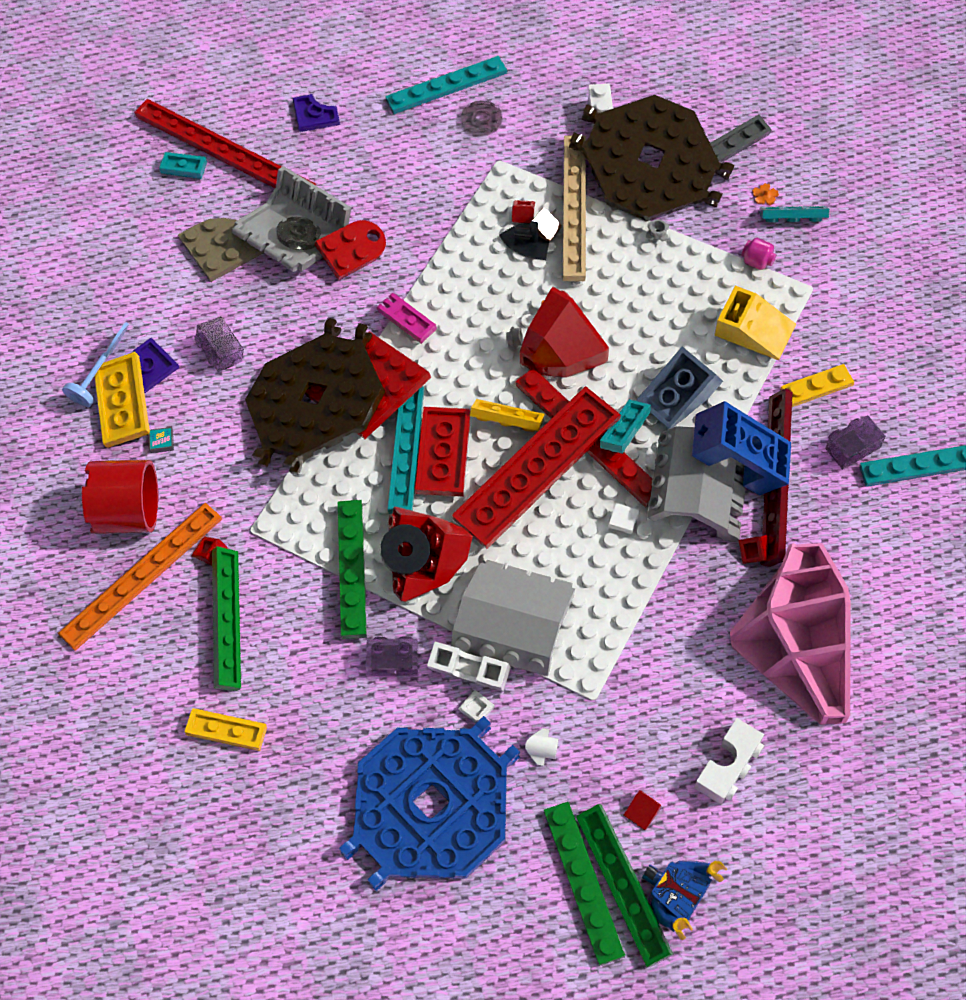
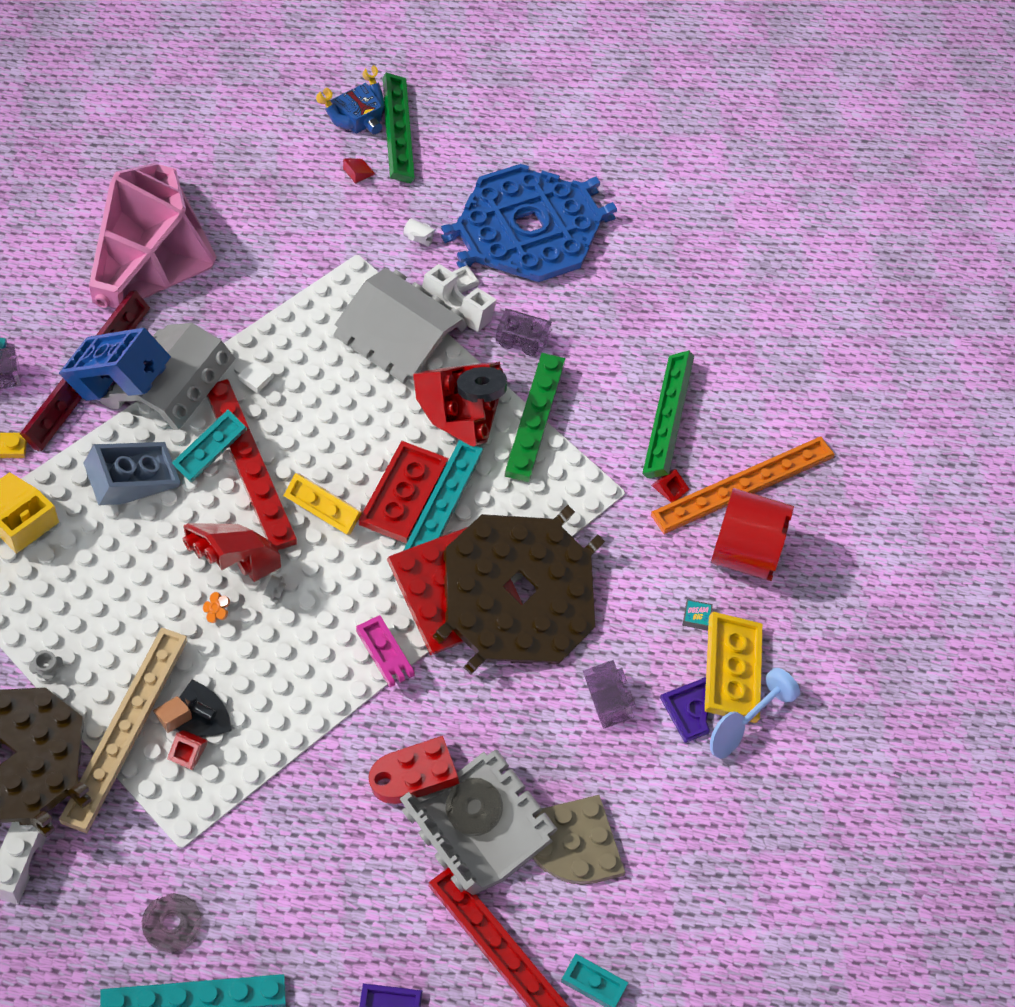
camera: 170 degrees left, 5 degrees down
(226, 729) = (690, 326): yellow plate -> none
(536, 467) = (315, 437): red plate -> none
(584, 884) = (428, 143): green plate -> none
(719, 781) = (284, 162): white arch -> none
(753, 549) = (148, 317): red slope -> none

